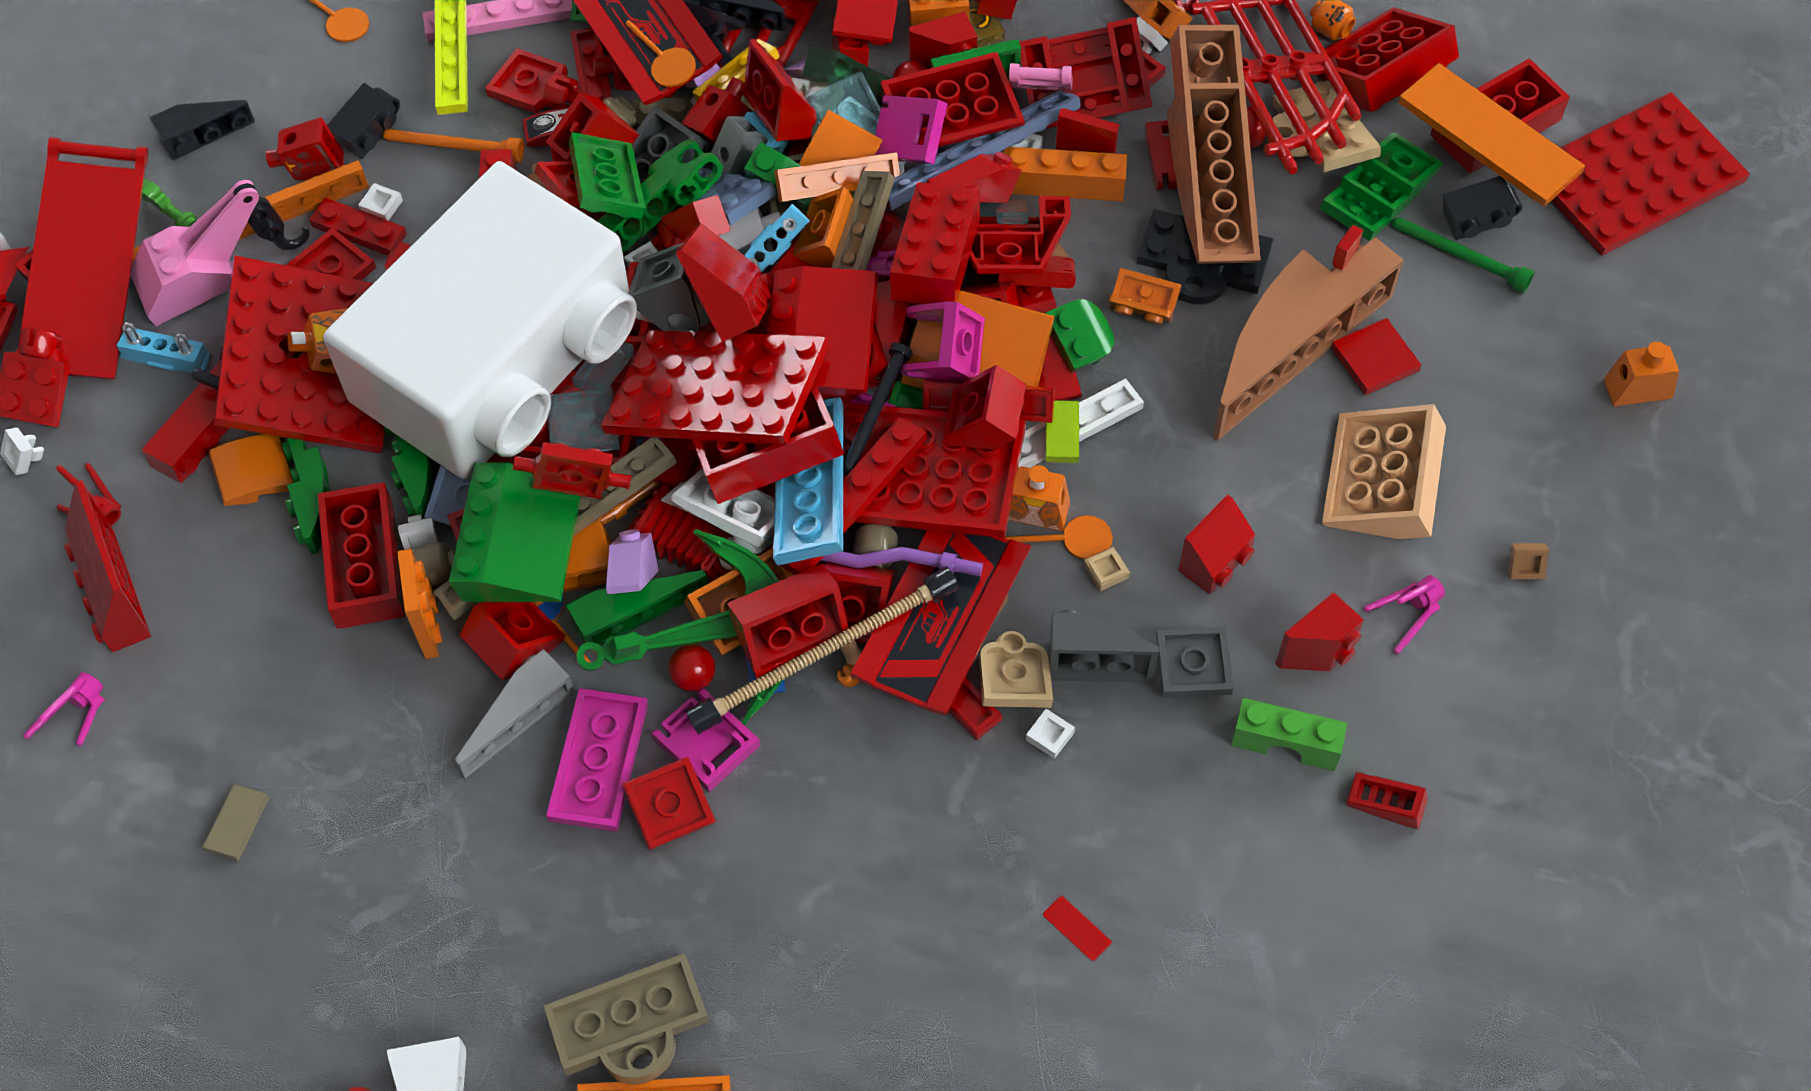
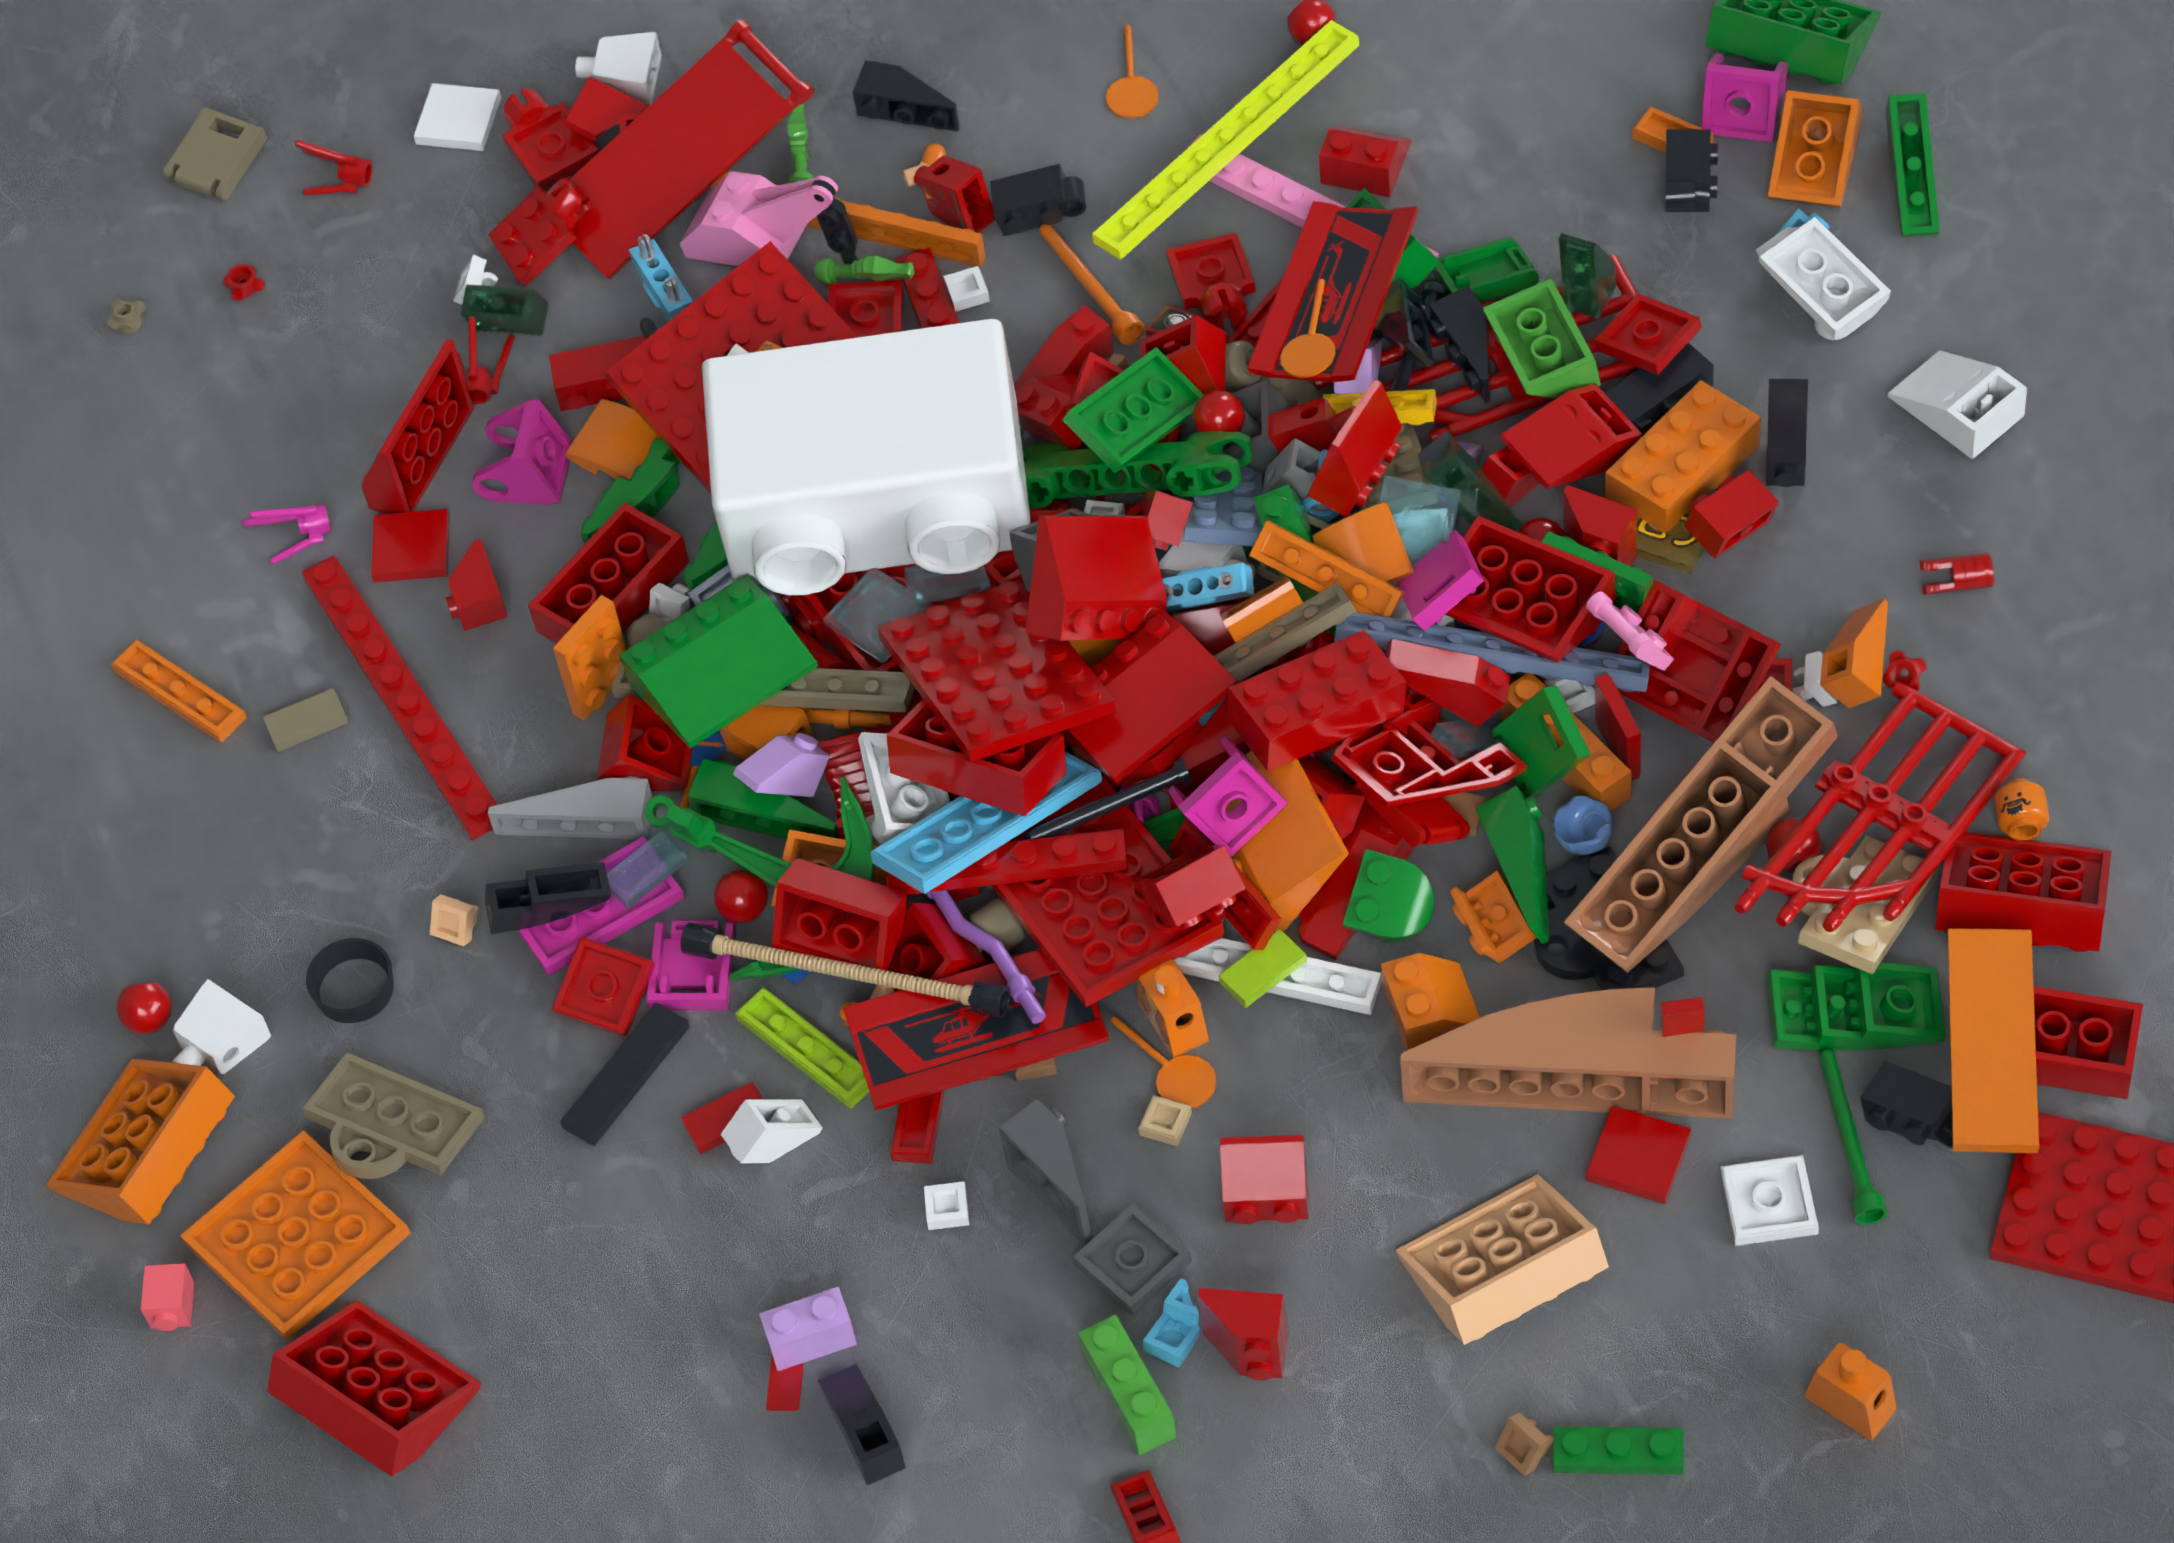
camera: 55 degrees right, 5 degrees down
(69, 447) = (505, 309): none -> clear green brick
(110, 885) = (178, 691): none -> orange tile
(176, 649) = (410, 545): none -> red tile
(218, 537) = (538, 462): none -> dark pink hose
(260, 144) = (931, 154): none -> orange arm
(265, 636) = (475, 590): none -> red slope
(289, 747) = (401, 695): none -> red plate
(307, 231) = (871, 267): none -> bright green piece
(468, 930) = (343, 951): none -> black tyre
(511, 854) = (453, 920): none -> light nougat tile
(566, 780) = (545, 896): none -> black slope
(572, 470) = (800, 646): red plate -> none
(609, 706) = (645, 869): none -> clear light blue tile
(652, 142) = (1218, 412): none -> red piece
(747, 845) = (624, 1074): none -> black tile
(841, 722) = (804, 1046): none -> lime tile
(846, 810) = (709, 1121): none -> red tile
(887, 791) = (769, 1129): none -> white slope
(1015, 673) = (970, 1132): tan plate -> none
(1058, 178) = (1532, 741): none -> green container
(1066, 885) = (808, 1328): none -> lavender brick
(1107, 244) = (1520, 848): none -> green slope
(1130, 208) = (1583, 825): none -> medium blue hair
(1167, 375) = (1426, 997): none -> orange slope
(1170, 907) = (863, 1424): none -> black slope
(1264, 677) = (1175, 1329): none -> medium azure slope
(1421, 595) = (1395, 1385): dark pink plant -> none
(1467, 321) = (1769, 1200): none -> white tile
(1572, 517) = (1618, 1450): none -> green plate

